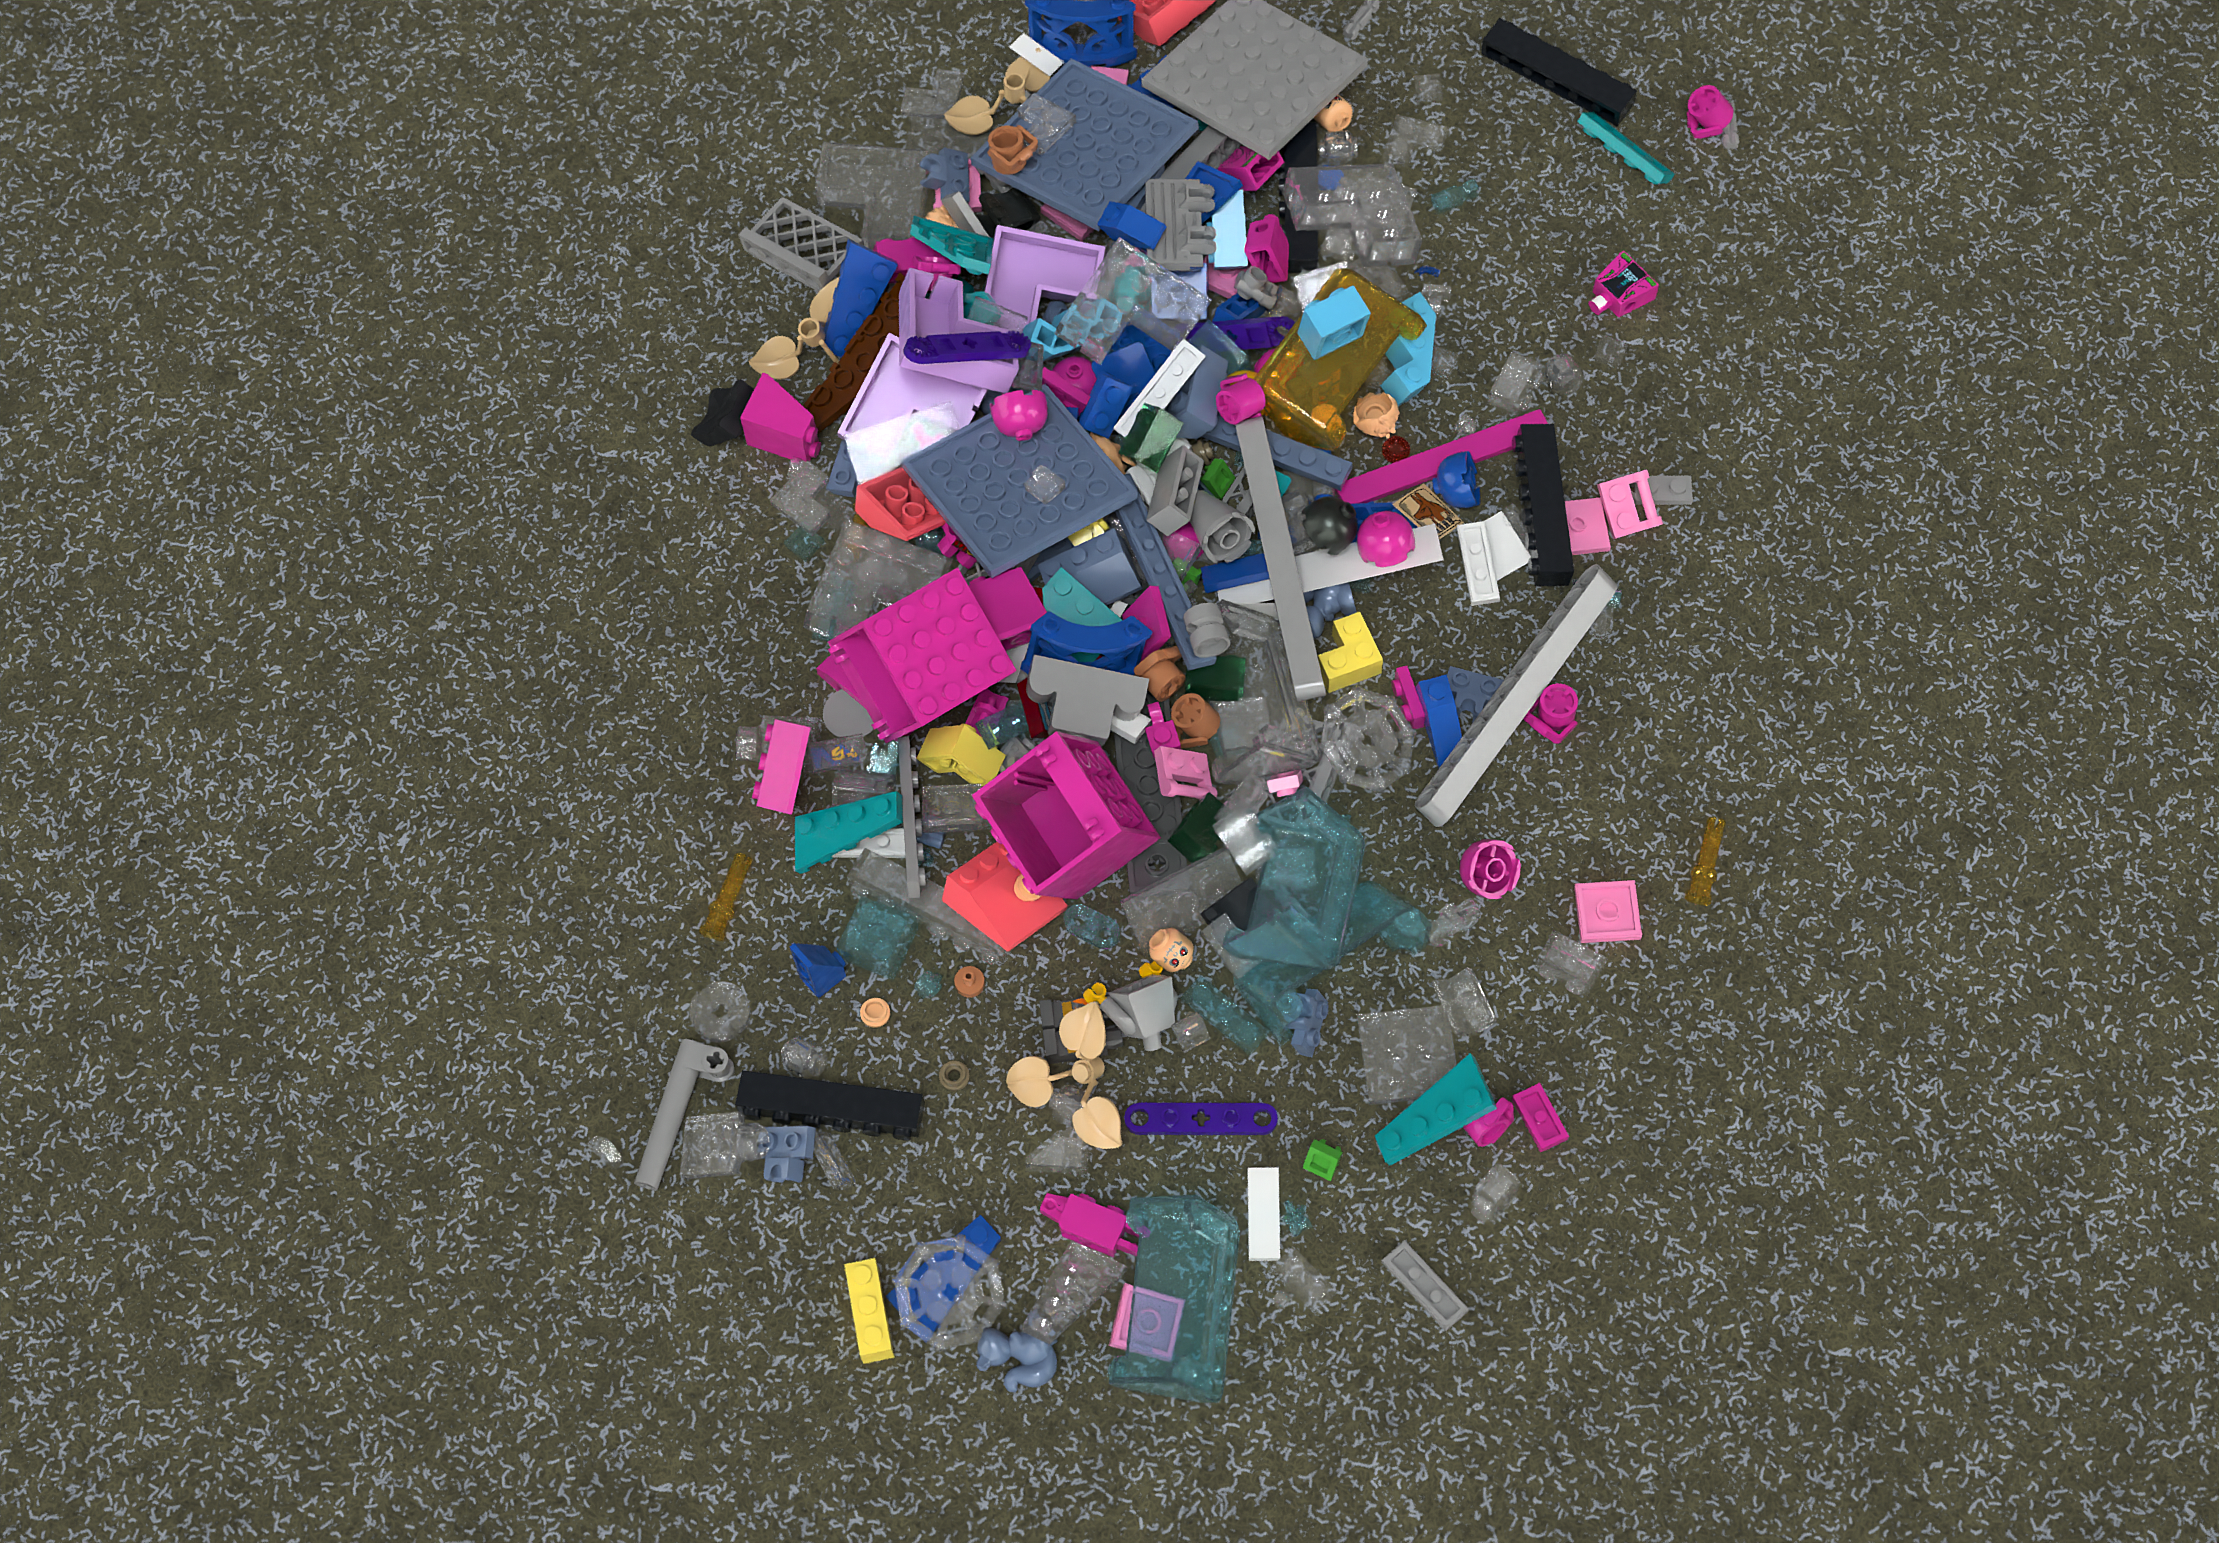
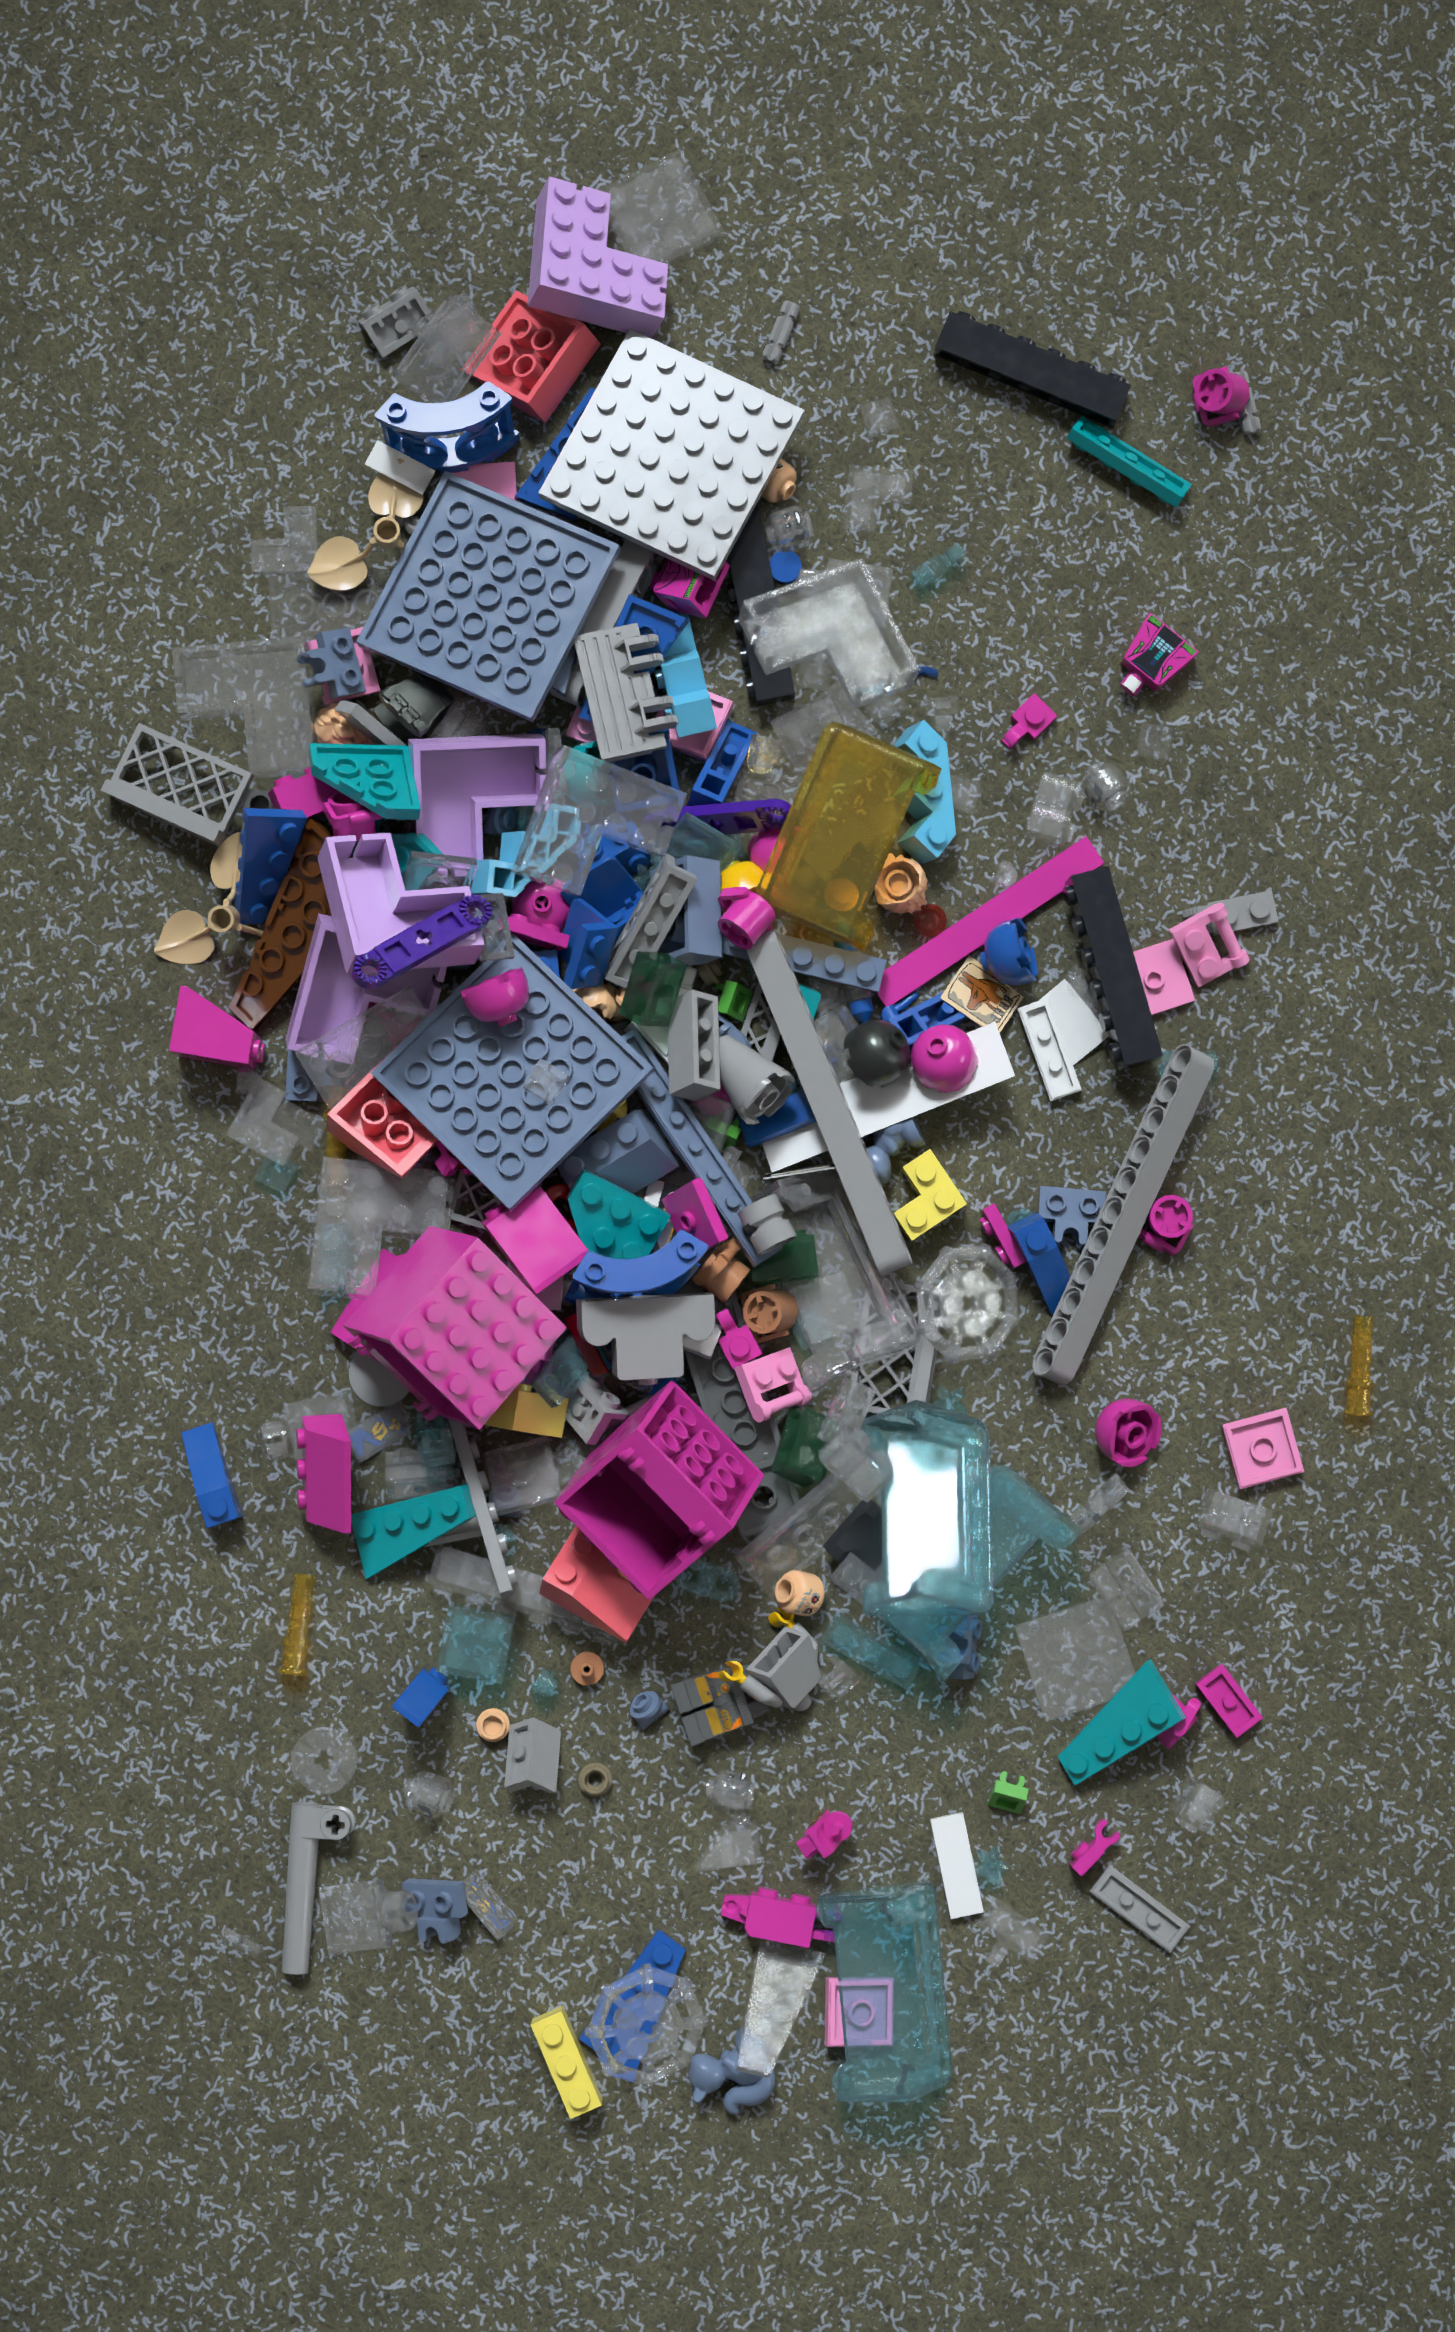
camera: 15 degrees left, 20 degrees up
(685, 766) = (211, 1476): none -> blue slope
(723, 414) = (145, 1034): black brick -> none
(830, 1104) = (470, 1842): black brick -> none
(905, 1037) = (532, 1756): none -> light grey panel
(1008, 148) = (403, 634): nougat piece -> none
(1015, 1025) = (647, 1708): none -> sand blue plate
(1030, 1080) = (736, 1742): tan plant -> none
(1048, 121) = (442, 577): clear plate -> none
(1131, 225) = (572, 714): blue slope -> none
(1149, 1154) = (825, 1833): none -> dark pink hips
(1224, 1119) = (844, 1777): dark purple piece -> none
(1256, 286) = (732, 748): light grey plate -> none
(1268, 248) = (735, 697): dark pink torso -> none
(1285, 783) = (891, 1393): bright pink plate -> none
(1333, 321) = (839, 814): medium azure brick -> none
(1384, 1225) = (1087, 1854): none -> dark pink plate
(1509, 318) = (1030, 719): none -> dark pink plate

